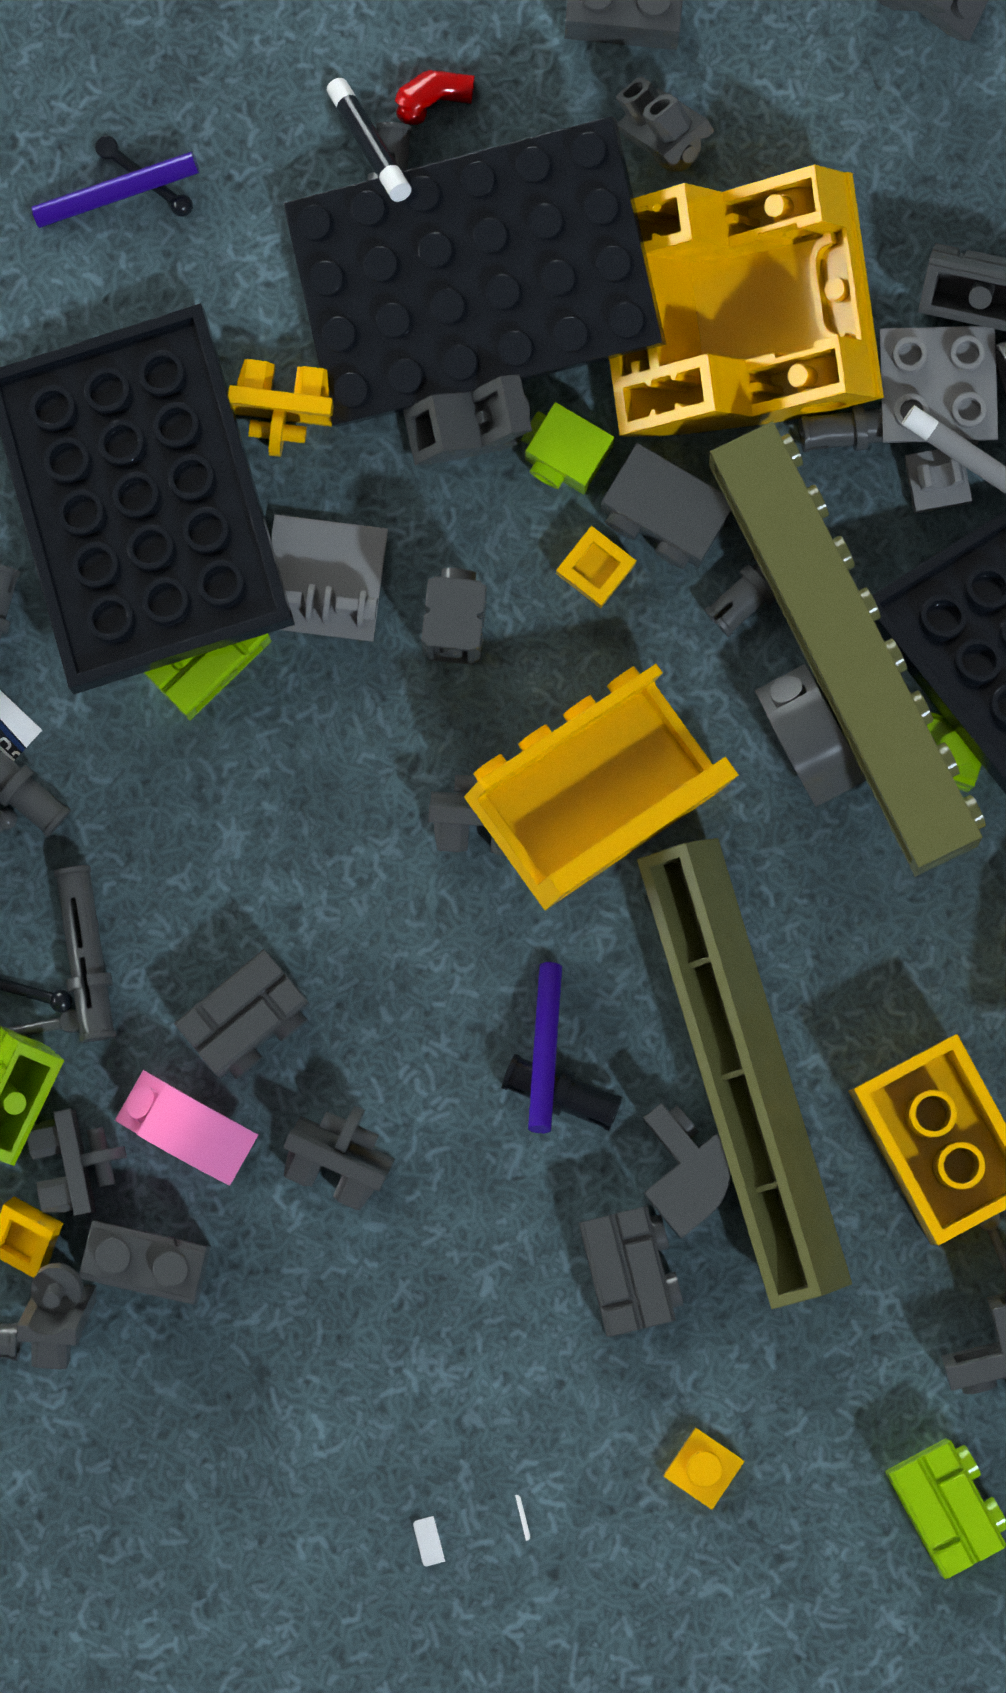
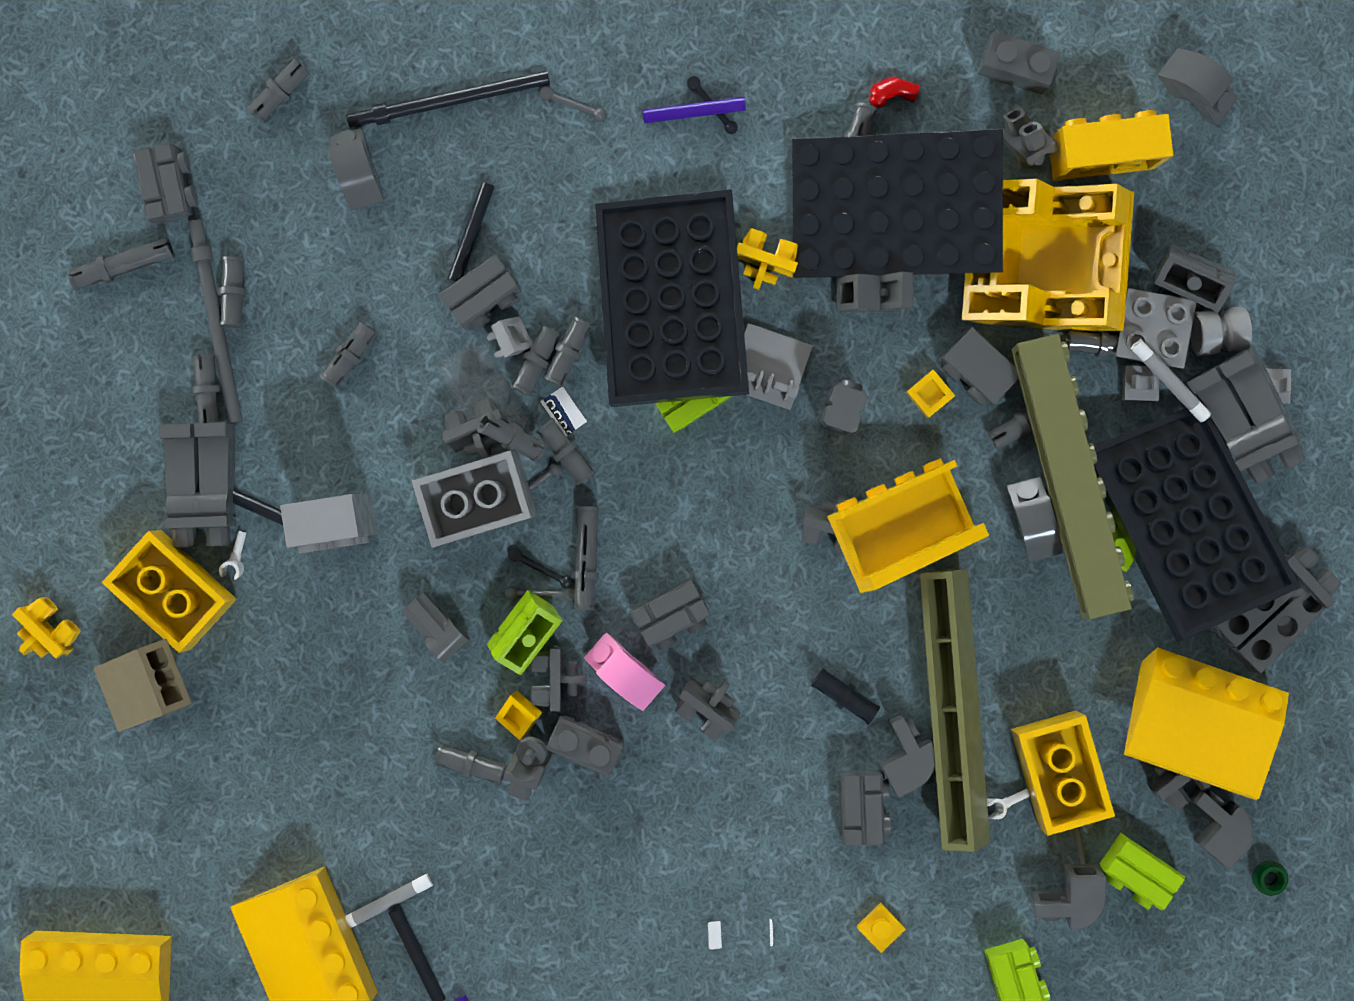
camera: 10 degrees right, 5 degrees up
(369, 139) = (851, 112): black bar -> none
(545, 1048) = (841, 670): dark purple bar -> none
(565, 448) = (928, 320): lime brick -> none
(798, 108) = (1111, 145): none -> yellow brick
(861, 1217) = (1002, 804): none -> white hand

